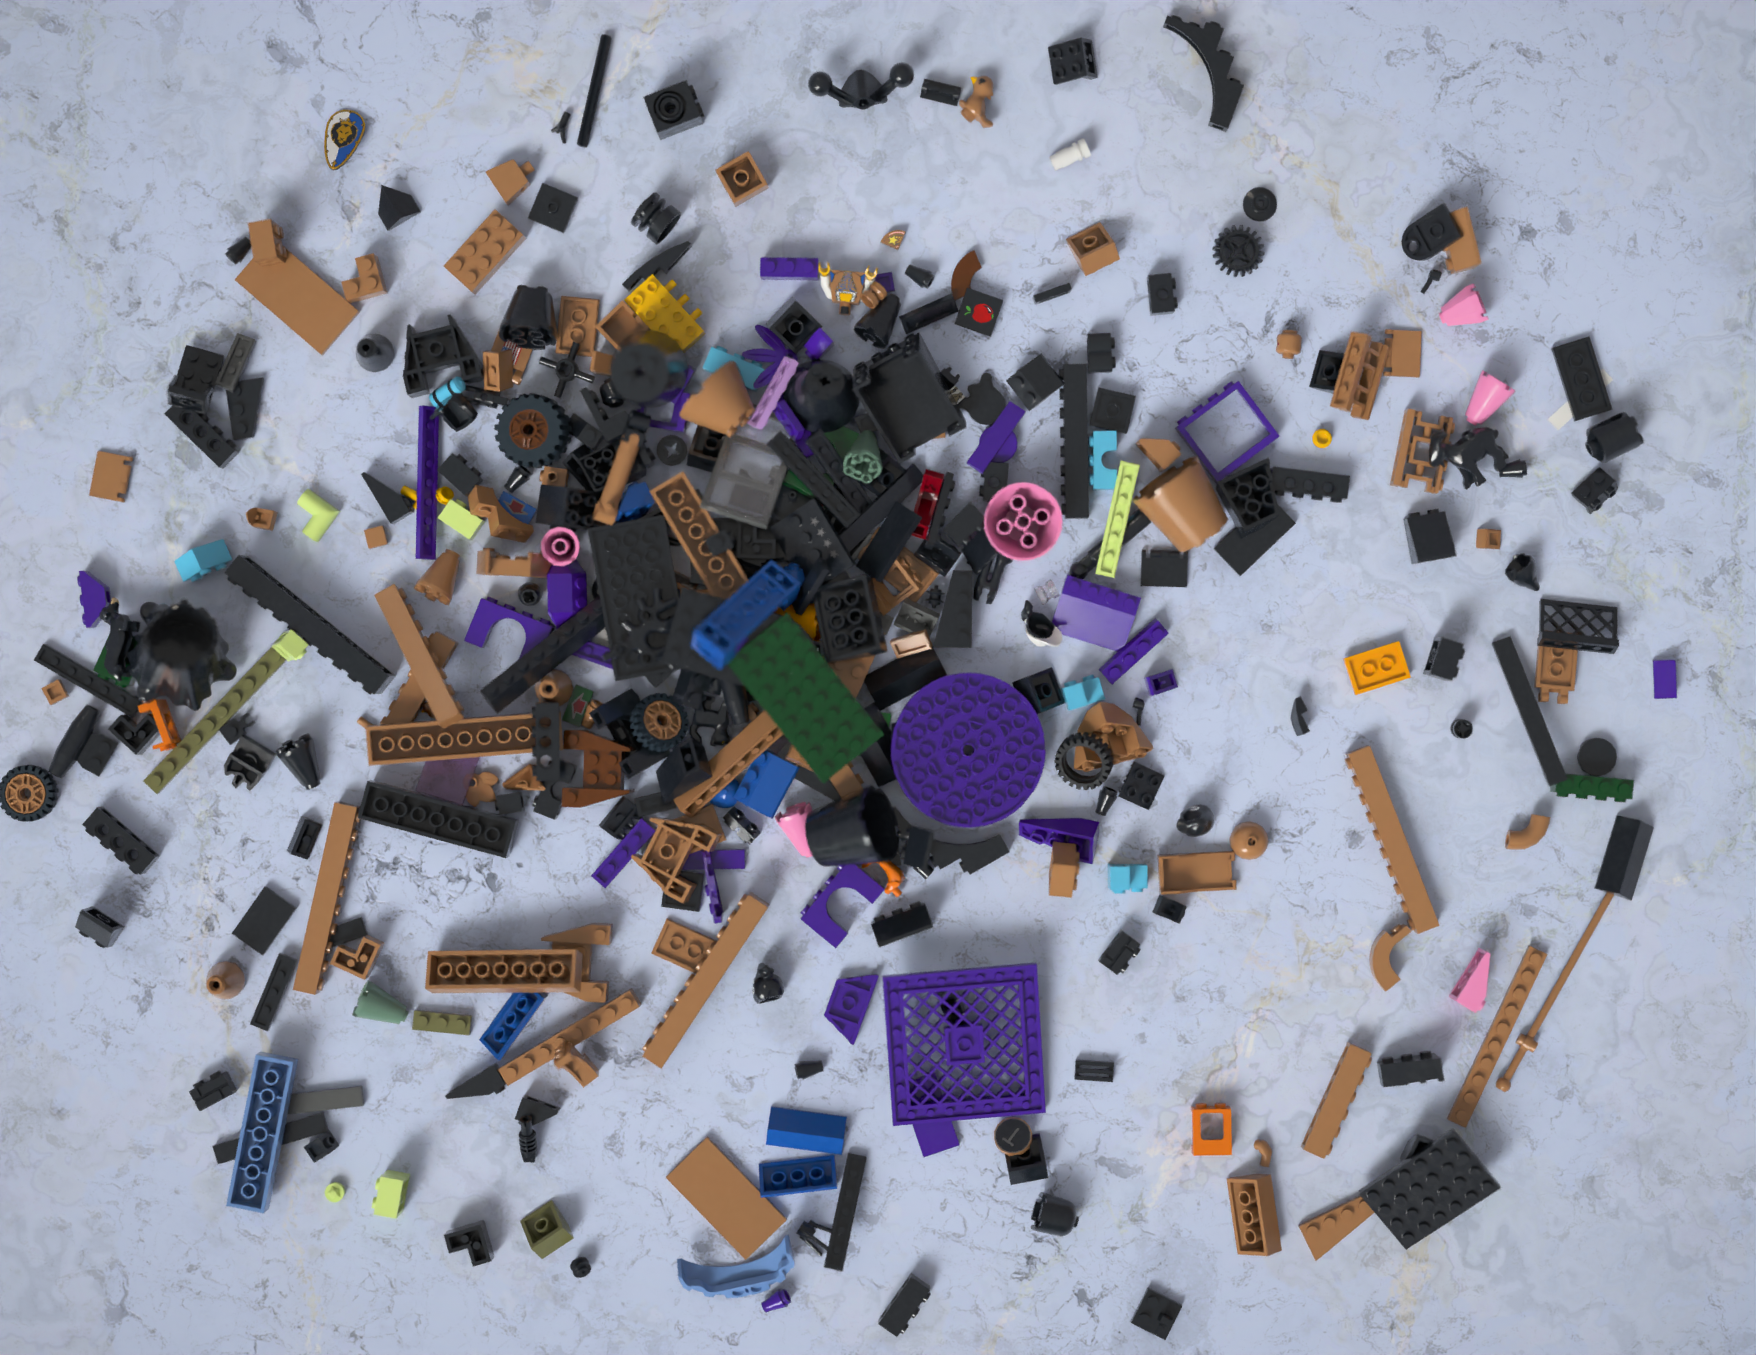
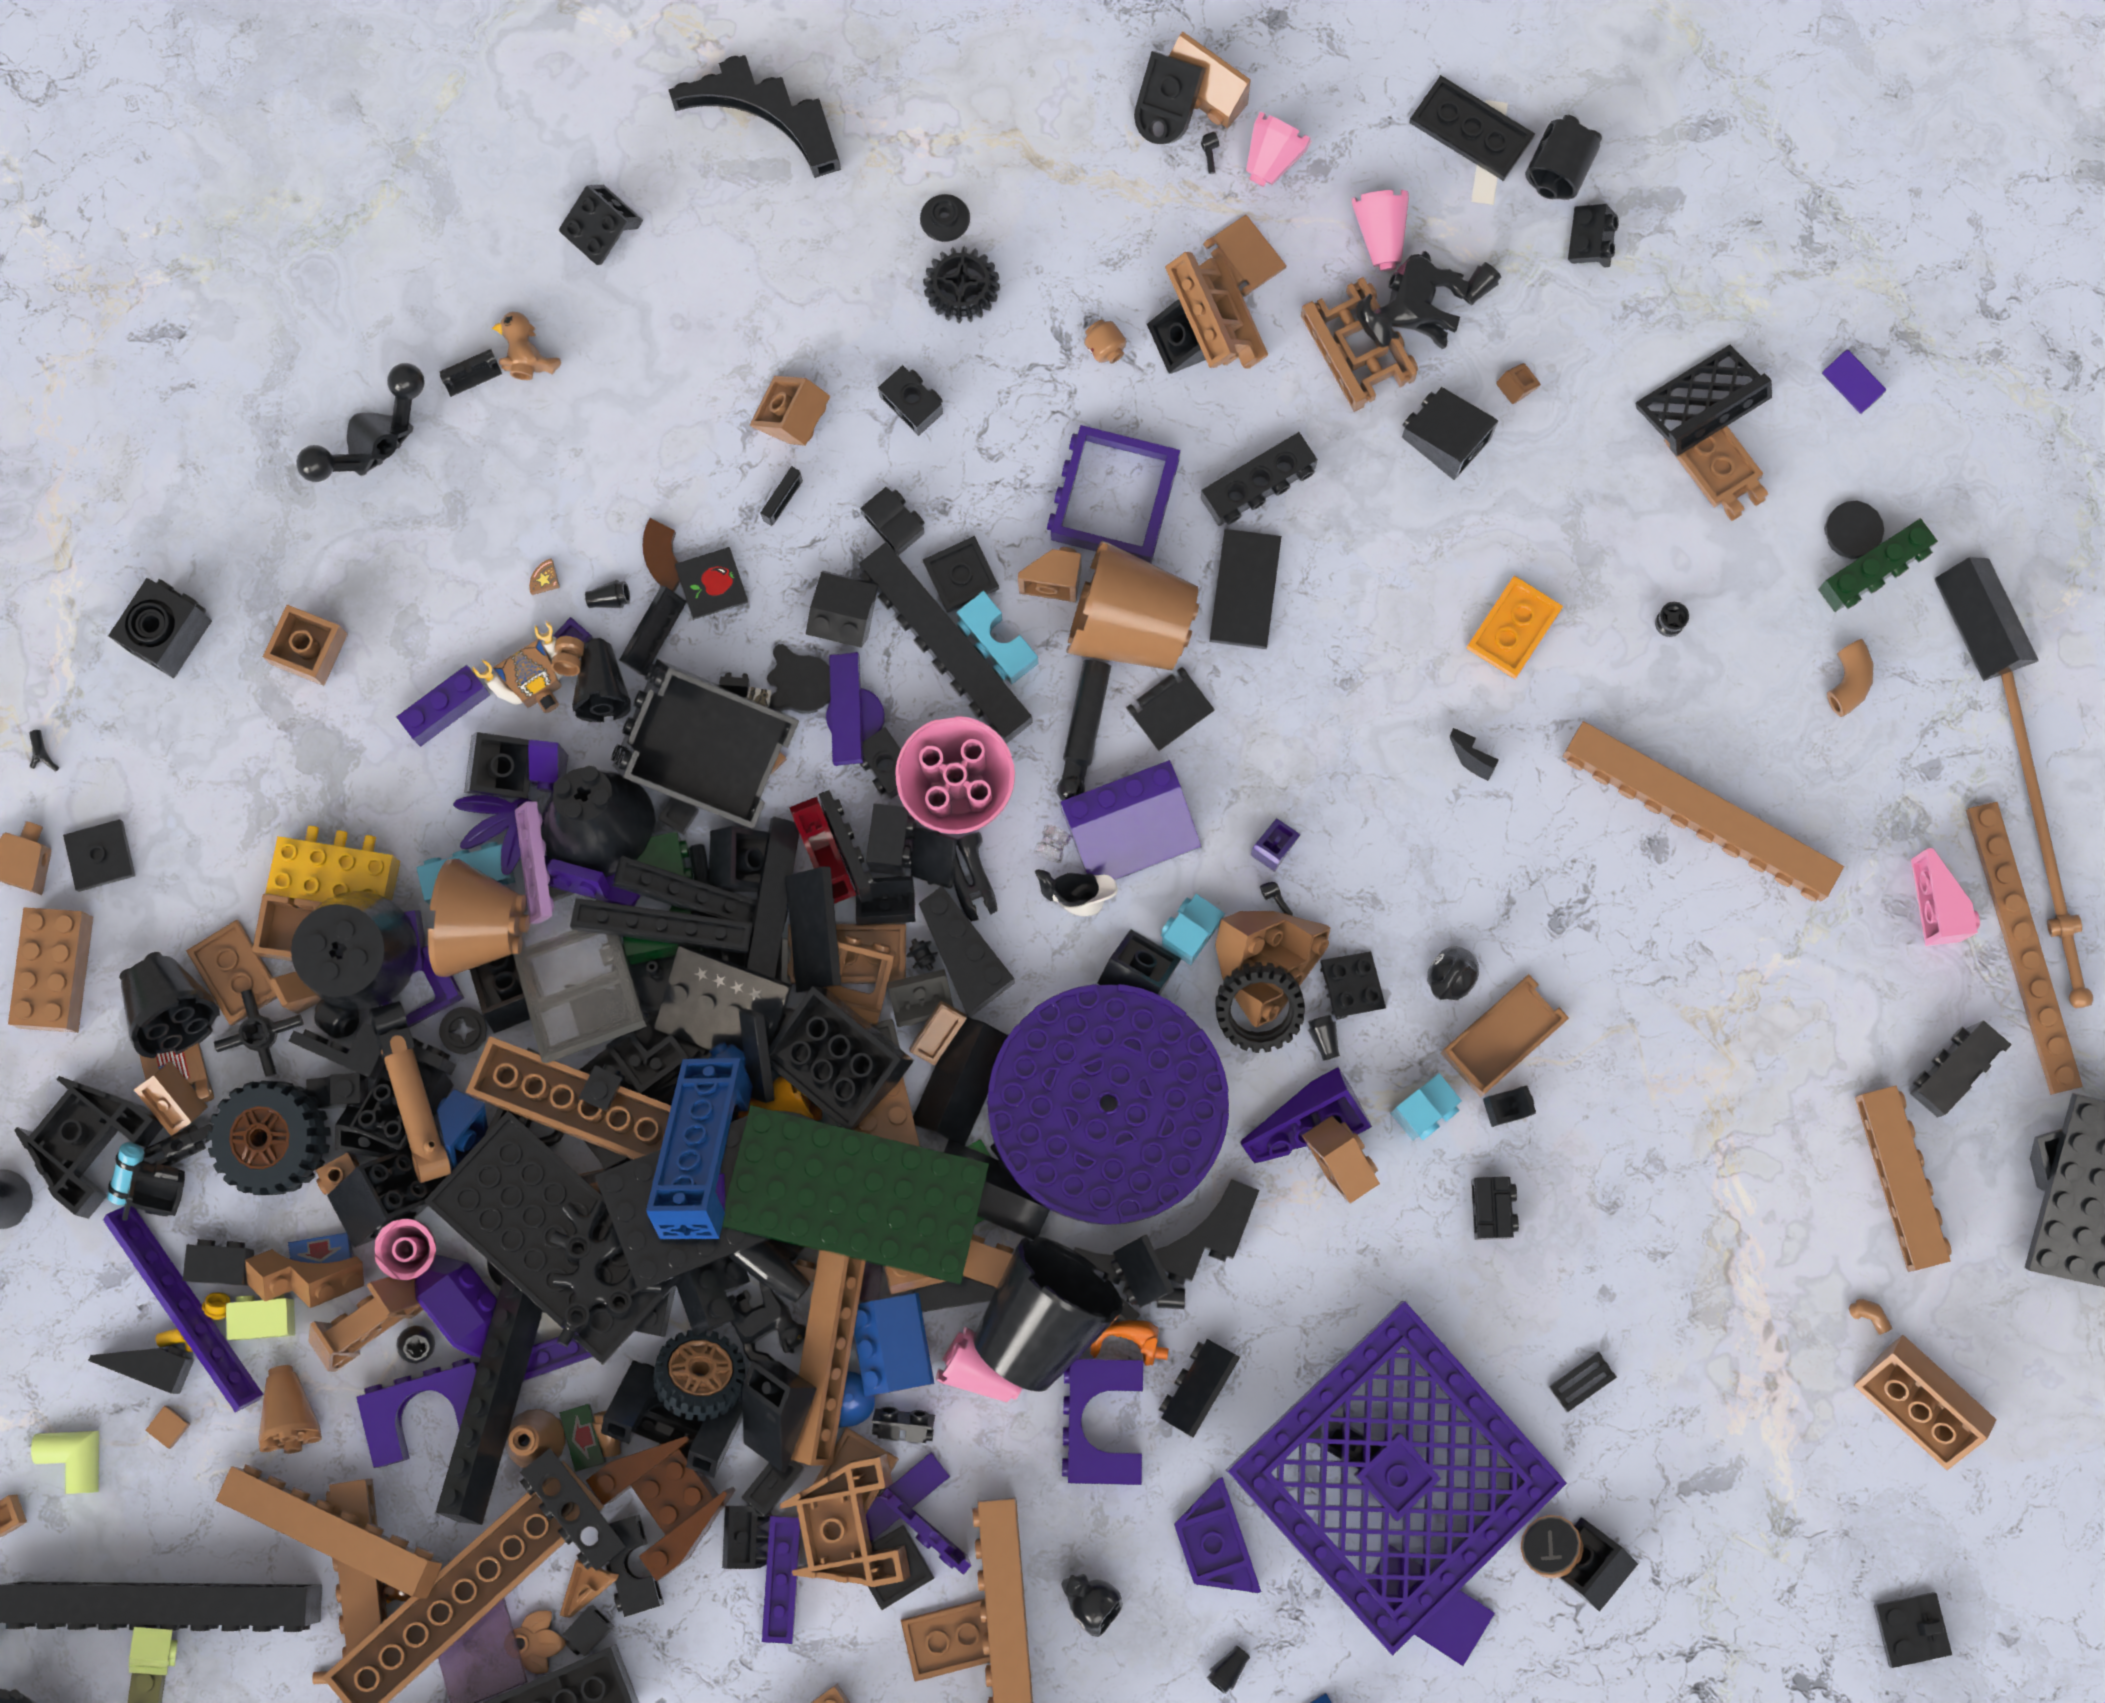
camera: 30 degrees left, 10 degrees down
(517, 478) = (295, 1212): black cone -> none
(594, 90) = (49, 682): black axle -> none
(652, 215) = (233, 768): black wheel -> none
(663, 261) = (282, 814): black slope -> none
(863, 458) = (704, 854): sand green cone -> none
(1054, 1215) = (1684, 1606): black cylinder -> none
(1069, 155) = (679, 326): white axle -> none
(1117, 519) = (1067, 691): yellowish green tile -> none
(1133, 651) = (1213, 832): dark purple plate -> none
(1206, 1147) = (1803, 1358): orange window -> none
(1240, 838) = (1525, 956): medium nougat cylinder -> none
(1250, 497) = (1204, 545): black wedge -> none
(1321, 438) = (1231, 418): yellow plate -> none
(1332, 1226) = (2031, 1337): medium nougat wing -> none
(1380, 954) = (1806, 962): medium nougat arch -> none
(1444, 659) = (1583, 553): black brick -> none
(1523, 572) = (1589, 386): black hat -> none
(1529, 711) = (1734, 536): black tile -> none

